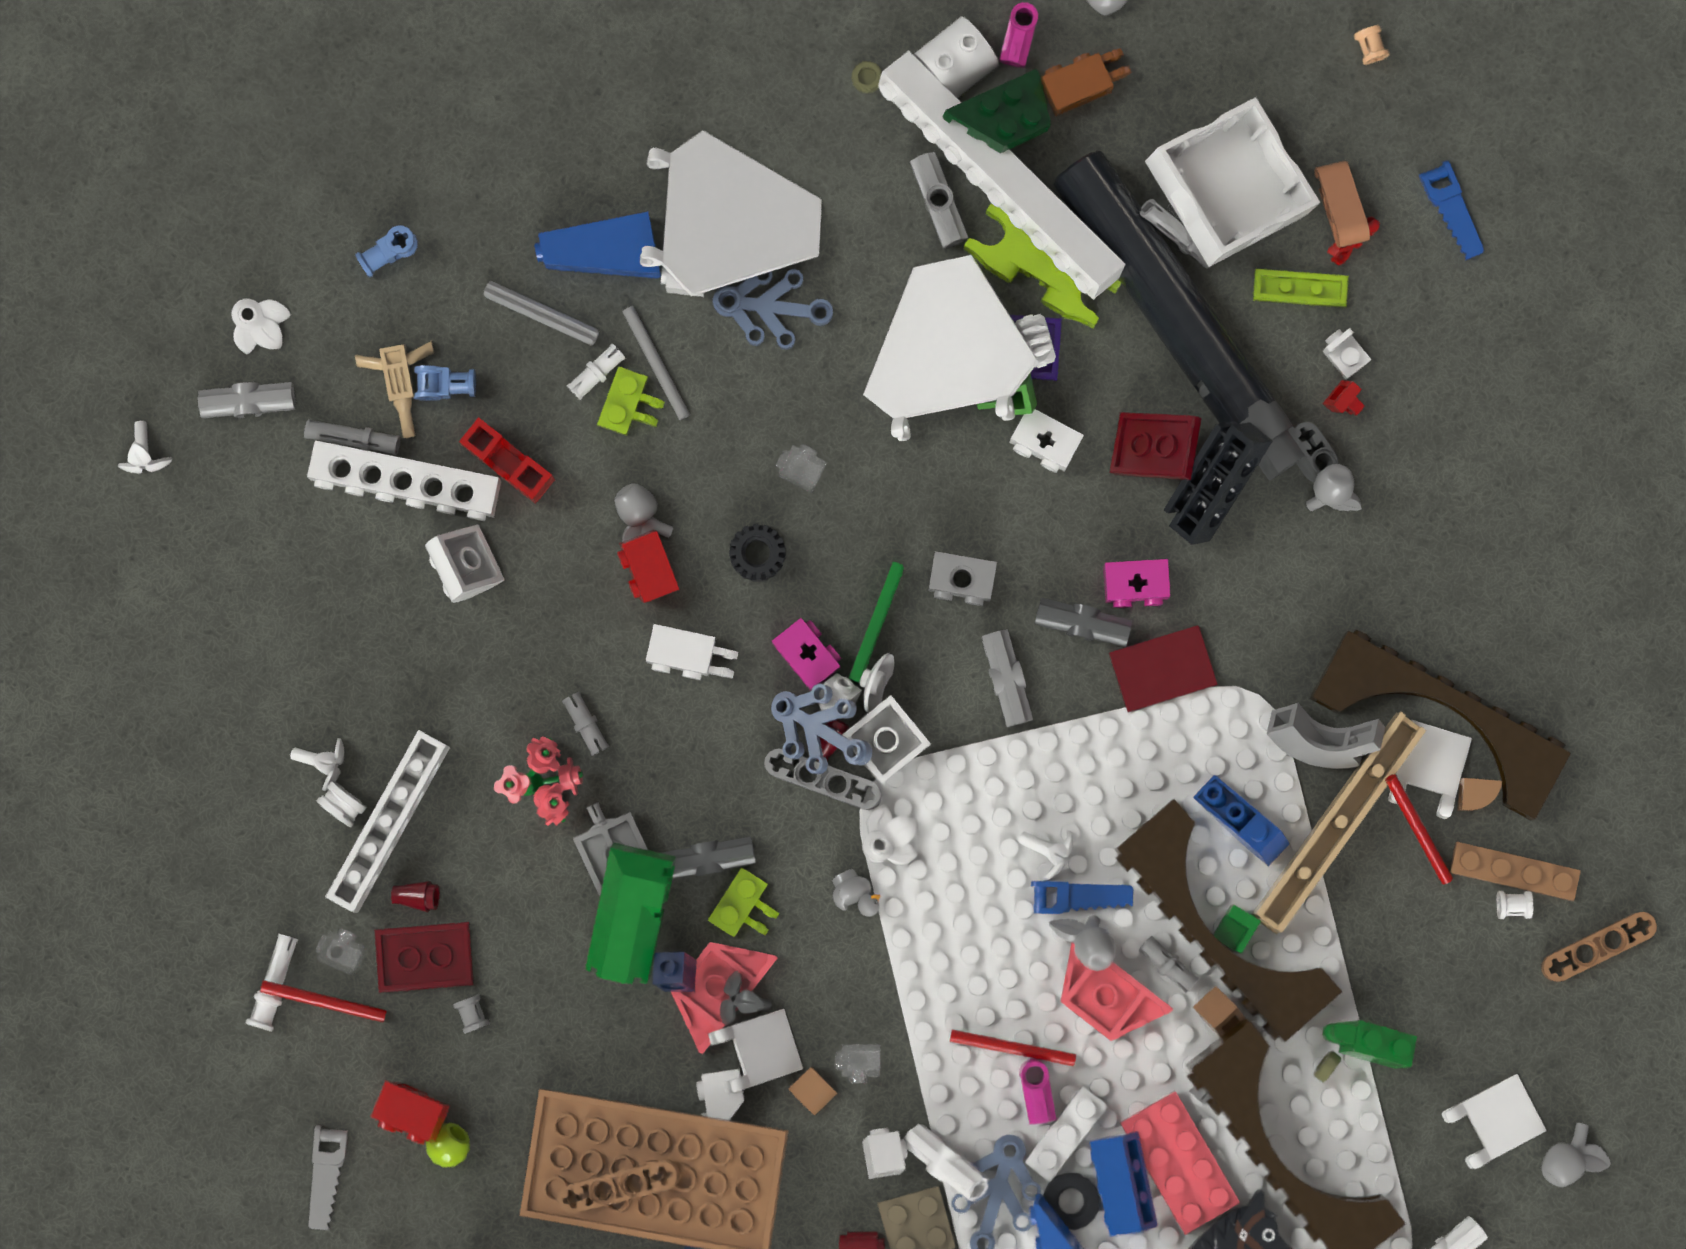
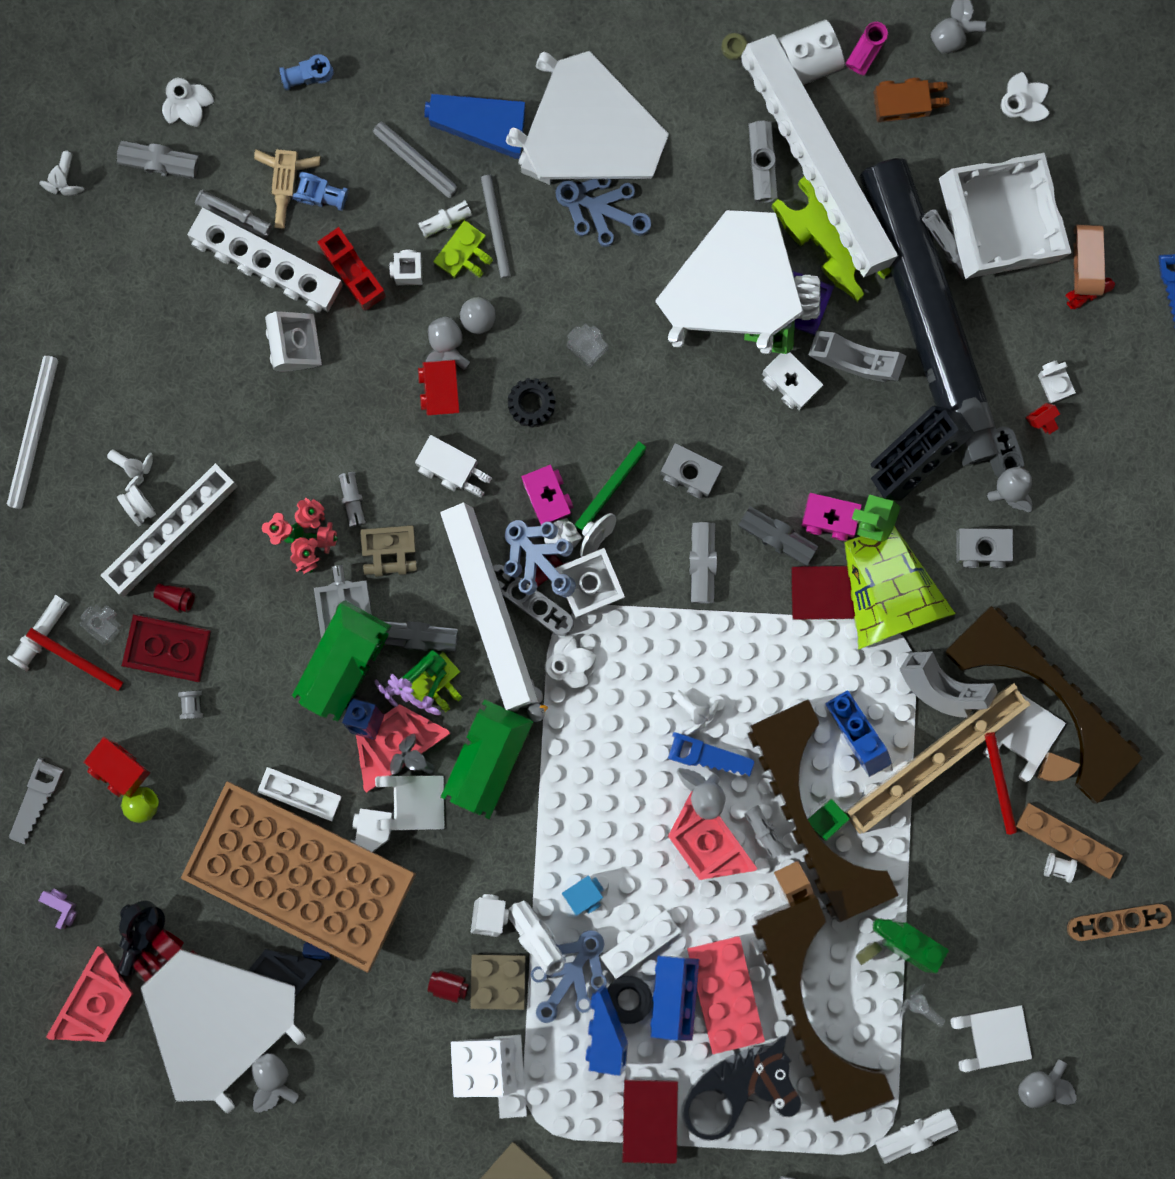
camera: 15 degrees right, 0 degrees up
(196, 755) = (32, 432): none -> white axle
(569, 440) = (407, 268): none -> white brick
(619, 1188) = (266, 878): medium nougat beam -> none
(626, 1078) = (299, 794): none -> white plate
(641, 760) = (388, 542): none -> dark tan plate
(666, 471) = (477, 315): none -> light grey piece
(731, 888) = (430, 666): none -> plant
(779, 801) = (489, 607): none -> white tile
(812, 1091) = (446, 848): medium nougat brick -> none
(831, 976) = (488, 759): none -> green brick
(859, 1062) = (490, 836): clear brick -> none
(986, 1097) = (584, 895): none -> dark azure brick
(1005, 113) = (837, 107): dark green wing -> none
(1013, 1047) = (618, 862): red bar -> none
(1037, 1094) = (627, 905): dark pink piece -> none
(1112, 394) = (855, 358): none -> light grey arch
(1155, 445) = (879, 410): dark red tile -> none
(1189, 569) = (877, 518): none -> bright green brick
(1218, 38) = (1028, 98): none -> white plate
(1227, 643) = (890, 589): none -> lime wedge
(1300, 288) = (1035, 318): lime tile -> none
(1337, 556) = (998, 539): none -> light grey brick
(1371, 44) = (1151, 138): light nougat bush -> none
(1401, 1108) = (919, 1004): none -> clear plant

